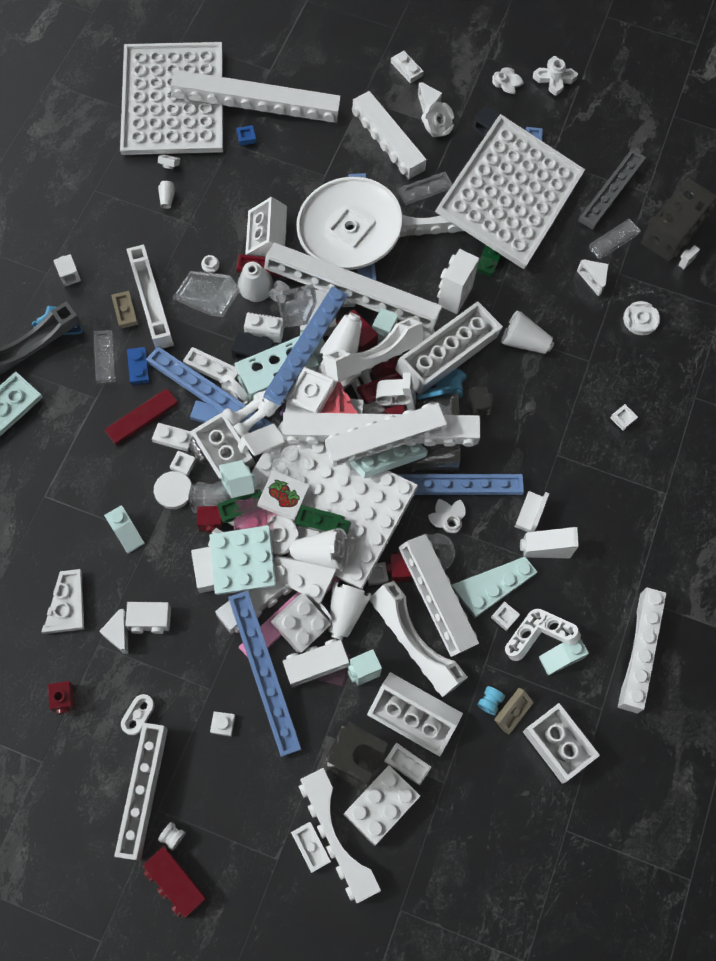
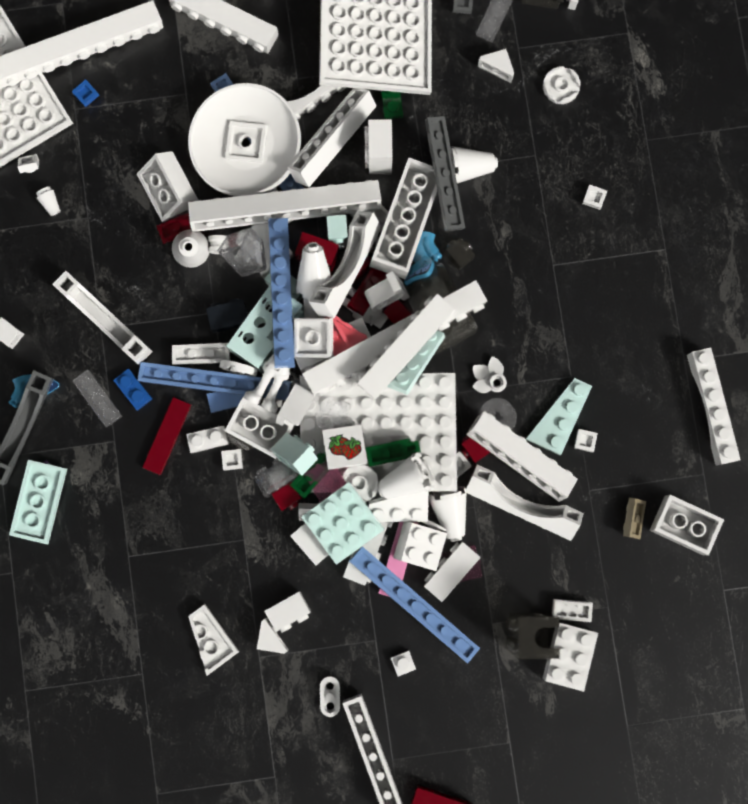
camera: 25 degrees left, 15 degrees up
(61, 697) = (259, 719): dark red brick -> none
(124, 309) = (85, 342): dark tan plate -> none
(124, 529) = (219, 548): light aqua slope -> none
(171, 836) = (417, 774): white wheel -> none
(172, 490) = (238, 488): white tile -> none
(208, 292) = (151, 282): clear slope -> none
(210, 264) = (135, 251): white plate -> none
(264, 326) = (226, 289): white brick -> none
(311, 847) = (531, 719): white plate -> none
(358, 877) = (582, 720): white arch -> none
(364, 668) = (495, 554): light aqua brick -> none
(414, 714) = (555, 566): white slope -> none
(420, 256) = (331, 136): none -> white brick
(425, 188) = (291, 56): clear plate -> none
(466, 484) = (485, 341): medium blue plate -> none
(491, 700) = (611, 521): medium azure wheel -> none
(501, 328) = (444, 173): none -> dark grey plate
(531, 511) = (559, 333): white panel -> none
(540, 626) = (620, 433): white beam -> none
(550, 543) = (591, 356): white slope -> none
(563, 656) = (651, 447): light aqua slope -> none

